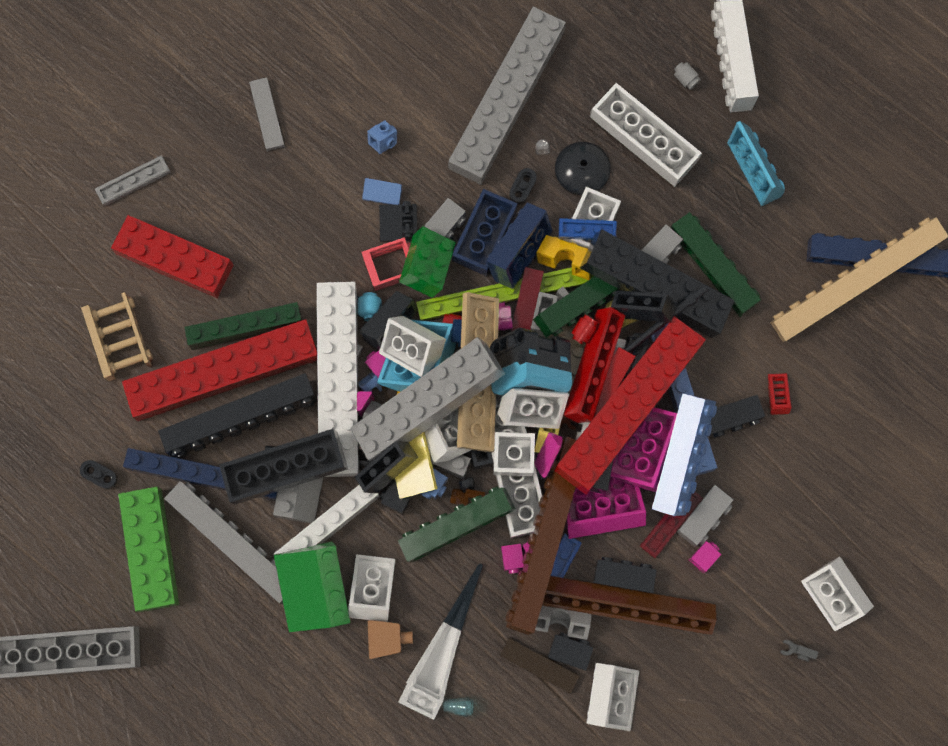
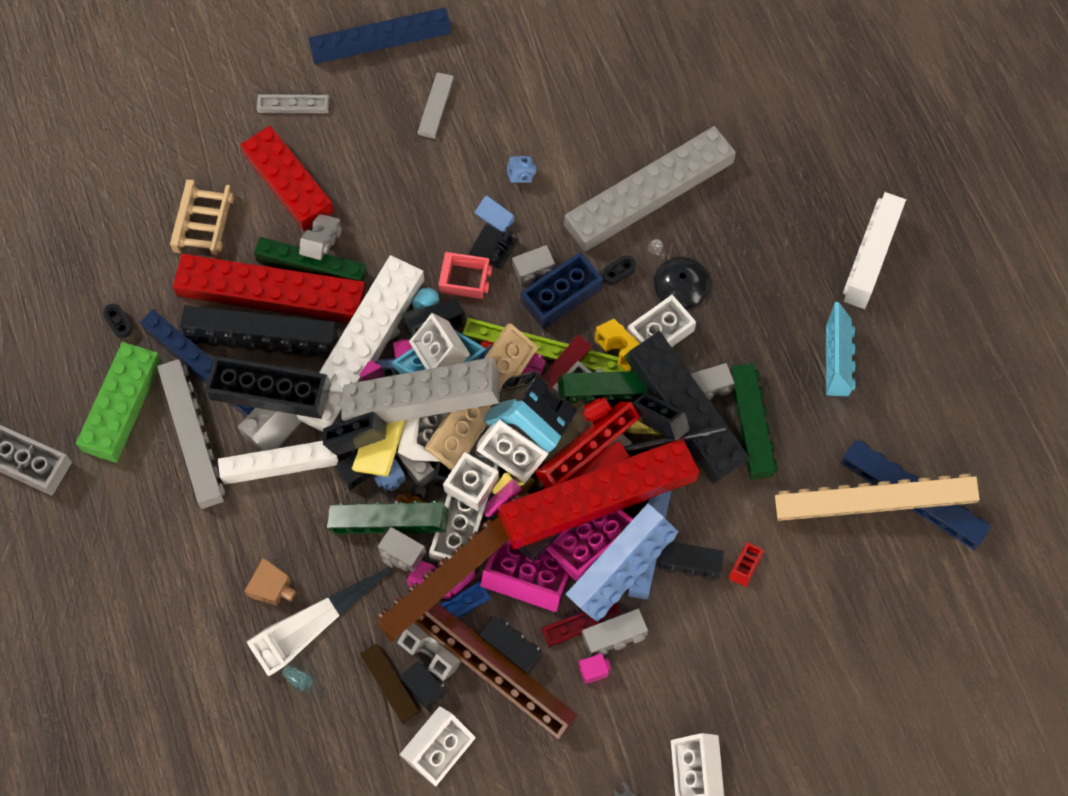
camera: 30 degrees right, 10 degrees down
(175, 73) = (379, 35): none -> dark blue brick
(241, 298) = (323, 235): none -> light grey arch
(312, 588) = (232, 504): green slope -> none
(371, 588) = (283, 535): white slope -> none
(427, 262) = (495, 287): green brick -> none
(486, 546) = (400, 550): none -> light grey brick
(519, 245) = (583, 313): dark blue brick -> none
(584, 229) = (647, 327): blue tile -> none
(645, 134) = (753, 280): white brick -> none
(687, 75) = (820, 250): light grey brick -> none

